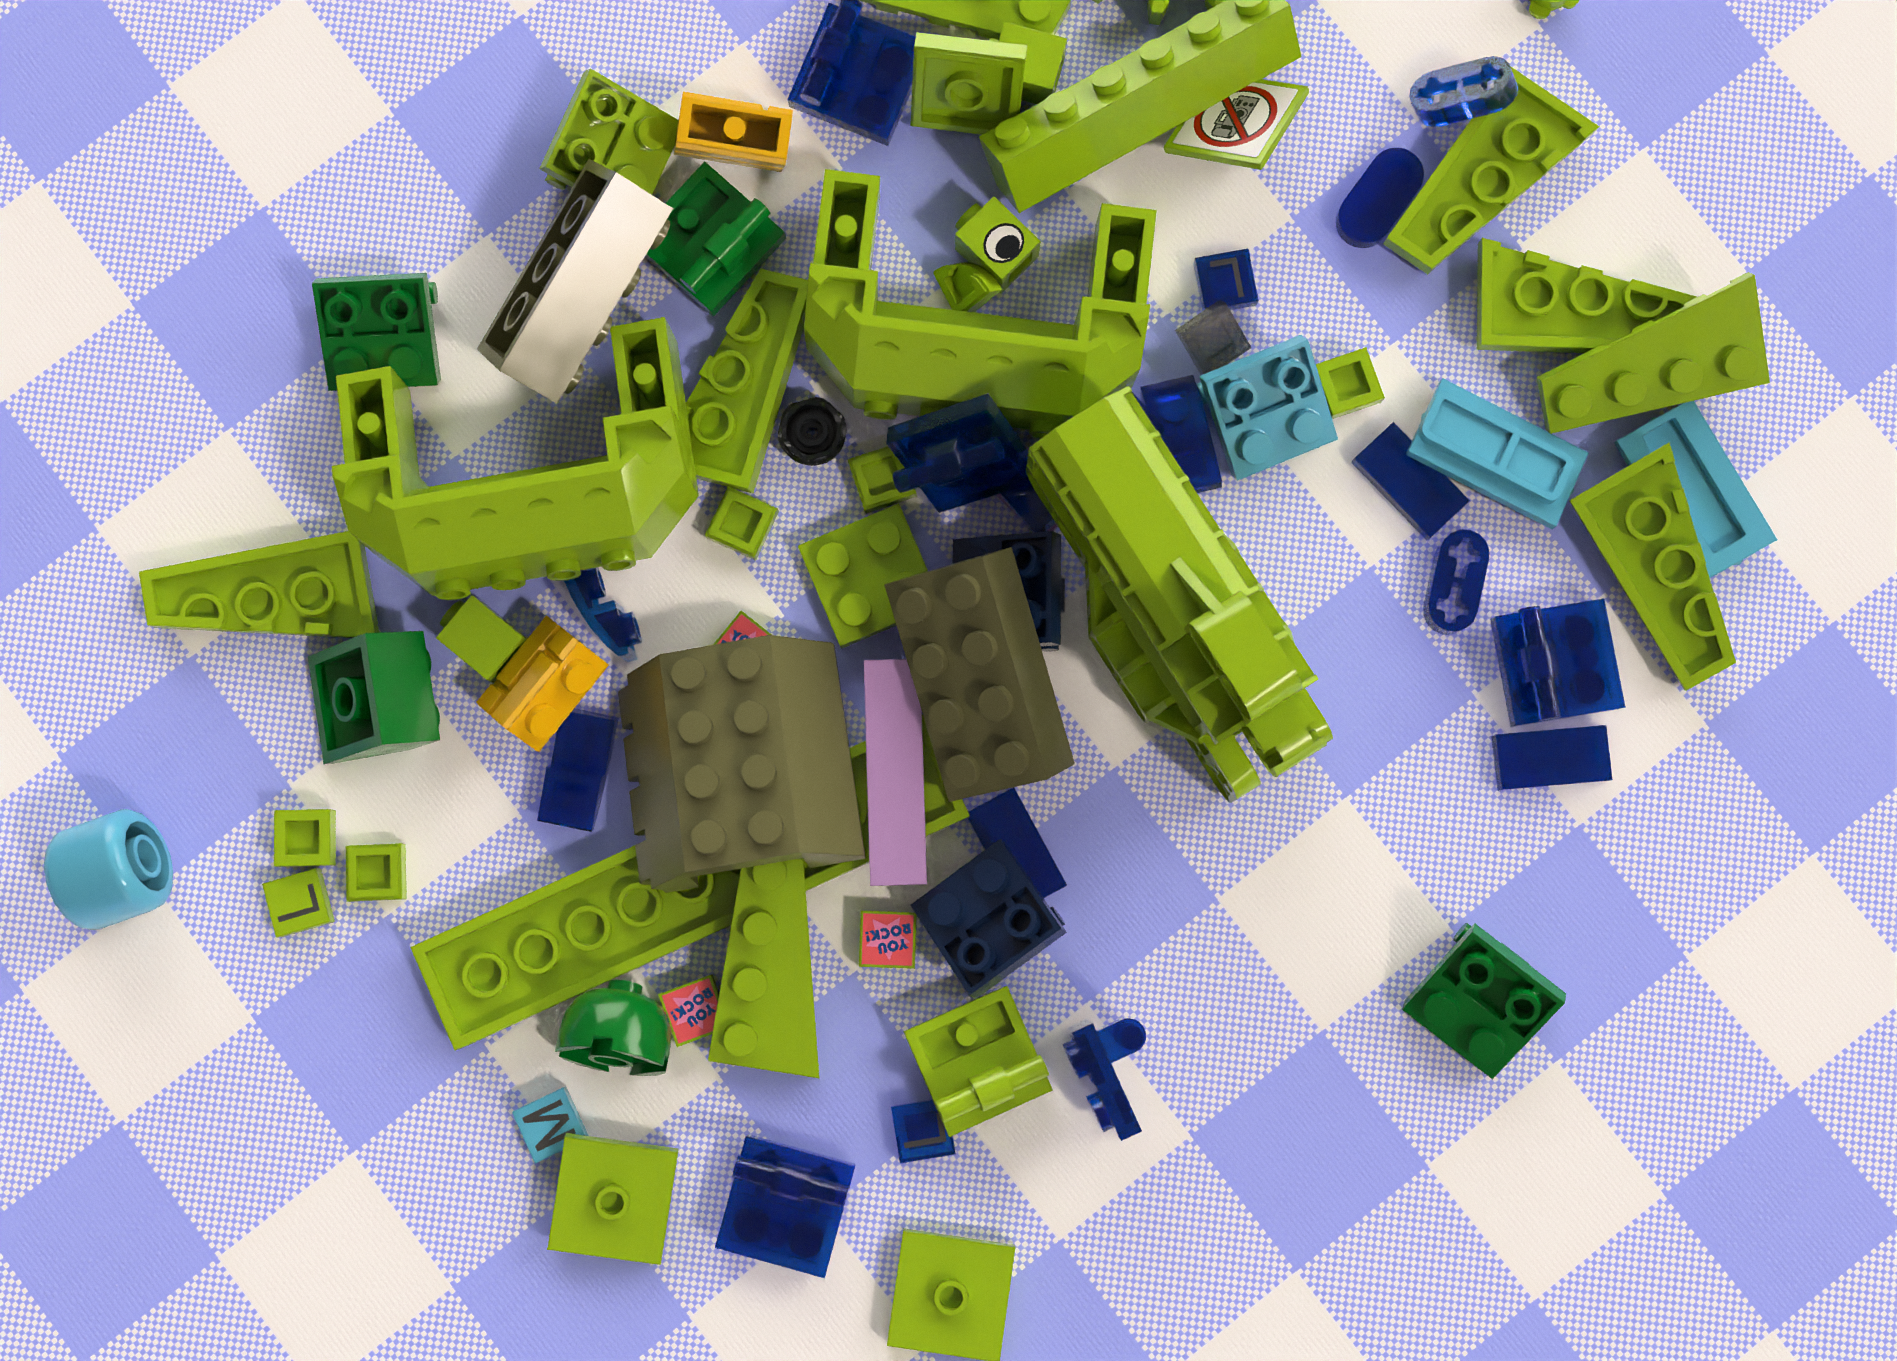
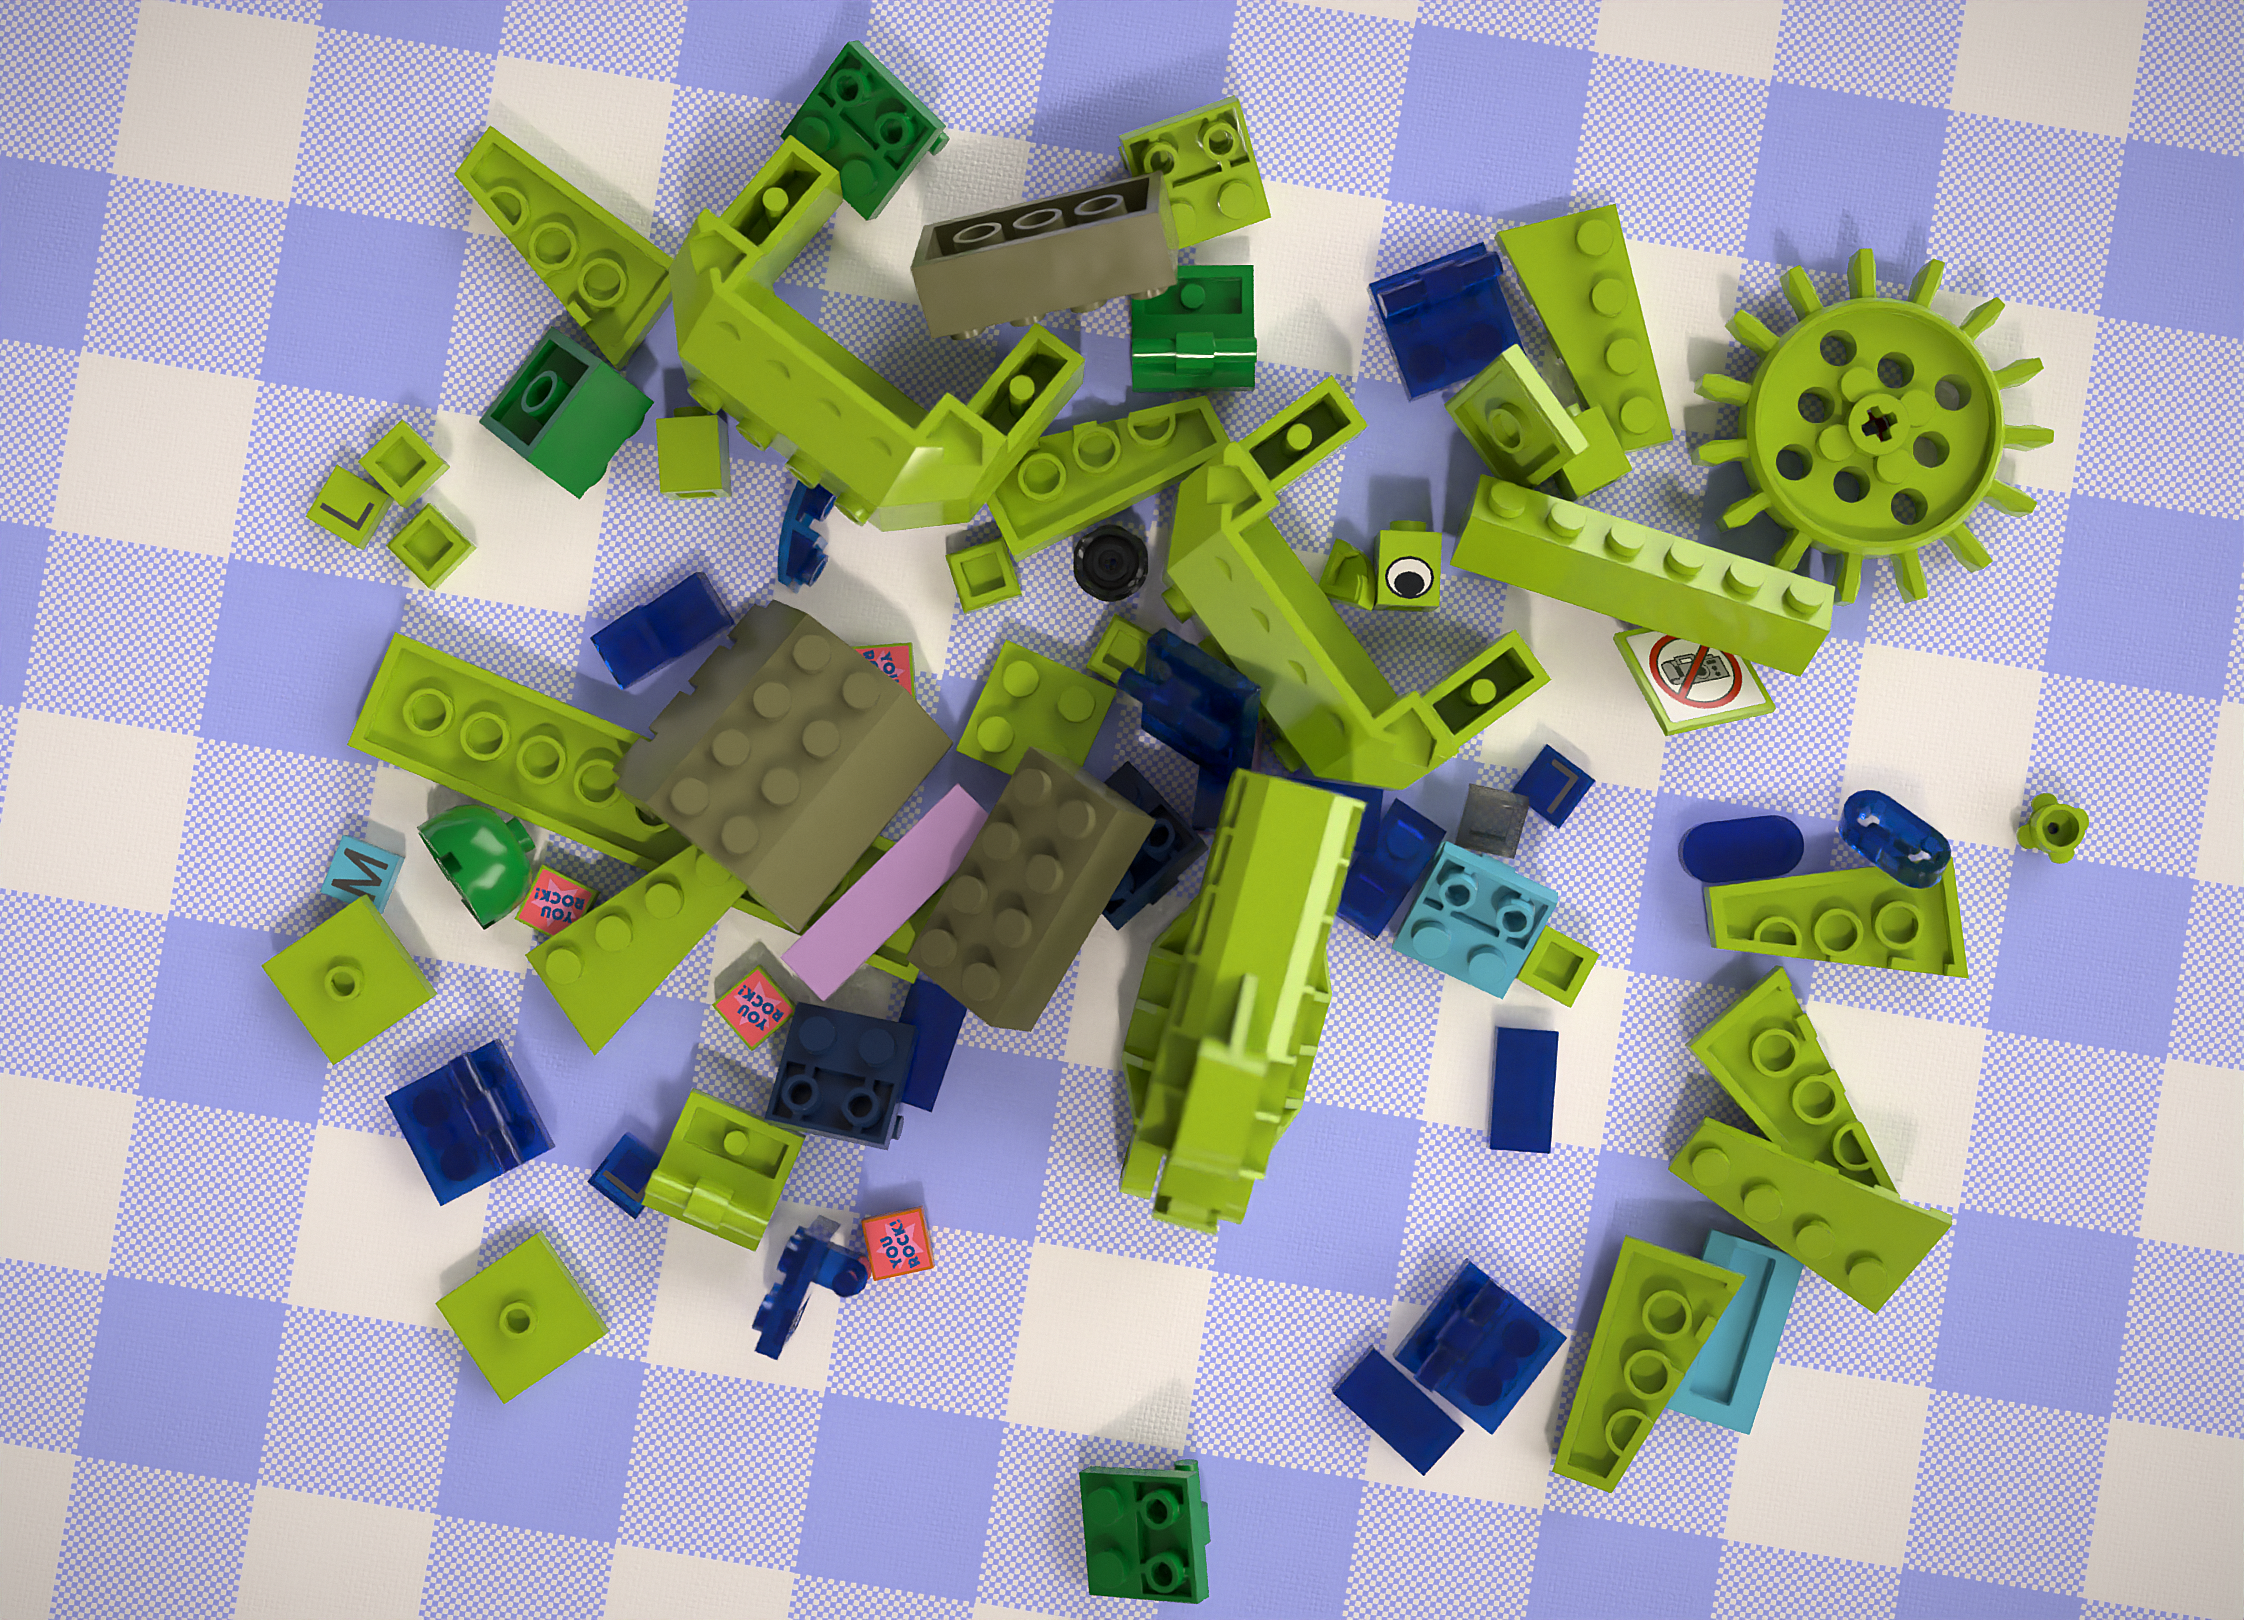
camera: 40 degrees right, 5 degrees up
(108, 869) = (231, 332): medium azure head -> none
(542, 684) = (700, 539): yellow brick -> none
(733, 132) = (1297, 266): yellow brick -> none
(1135, 989) = (898, 1243): none -> tile
(1443, 579) = (1479, 1215): clear blue beam -> none
(1497, 453) = (1610, 1141): medium azure piece -> none

